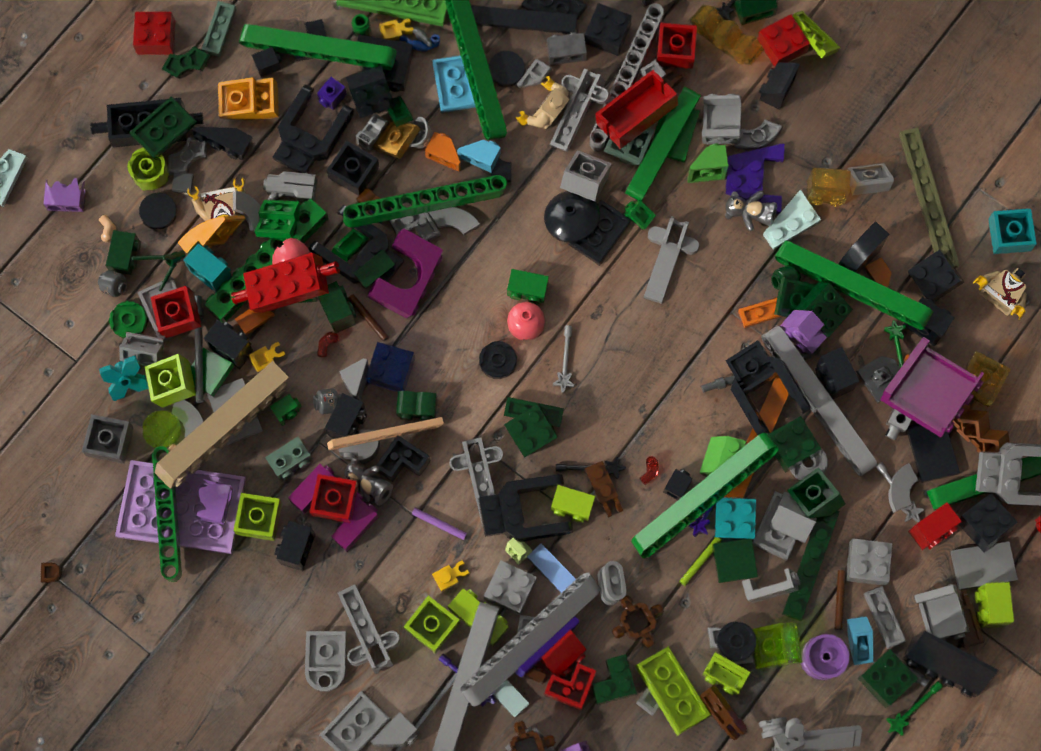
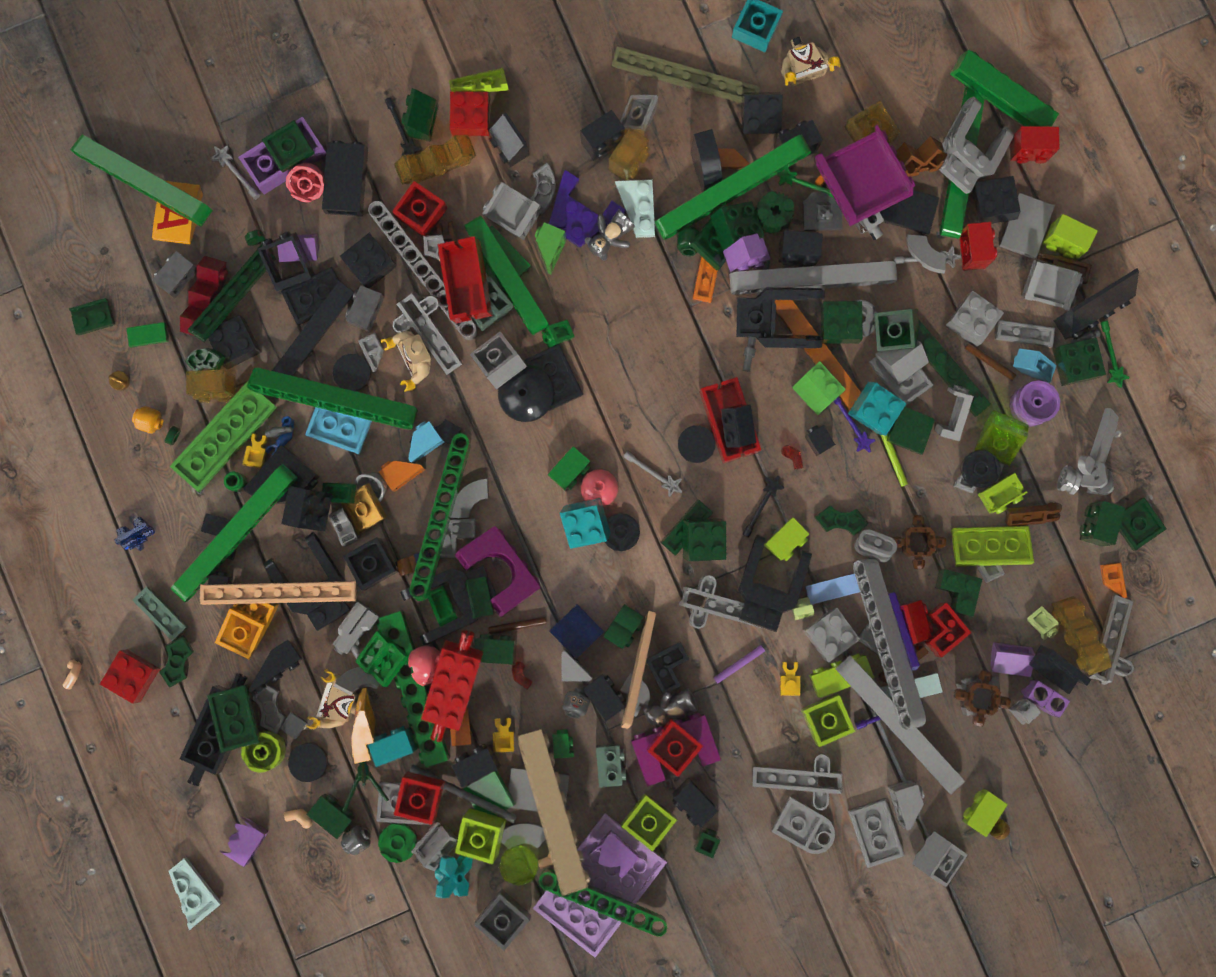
camera: 60 degrees left, 10 degrees up
(266, 577) = (707, 842): none -> dark green brick
(287, 107) = (278, 593): none -> light nougat tile
(331, 93) = (285, 544): dark purple brick -> none
(487, 321) = (585, 523): none -> teal brick
(603, 486) = (785, 504): reddish brown hinge -> none
(612, 382) = (696, 444): none -> black tile
(614, 535) = (833, 519): none -> dark green tile
(646, 401) = (738, 426): none -> black hinge
(648, 396) = (714, 400): none -> red piece
(667, 257) = (610, 332): light grey piece -> none
(704, 495) = (848, 423): beam -> none
(831, 153) = (602, 135): none -> black brick
(862, 328) = (778, 203): none -> dark green brick

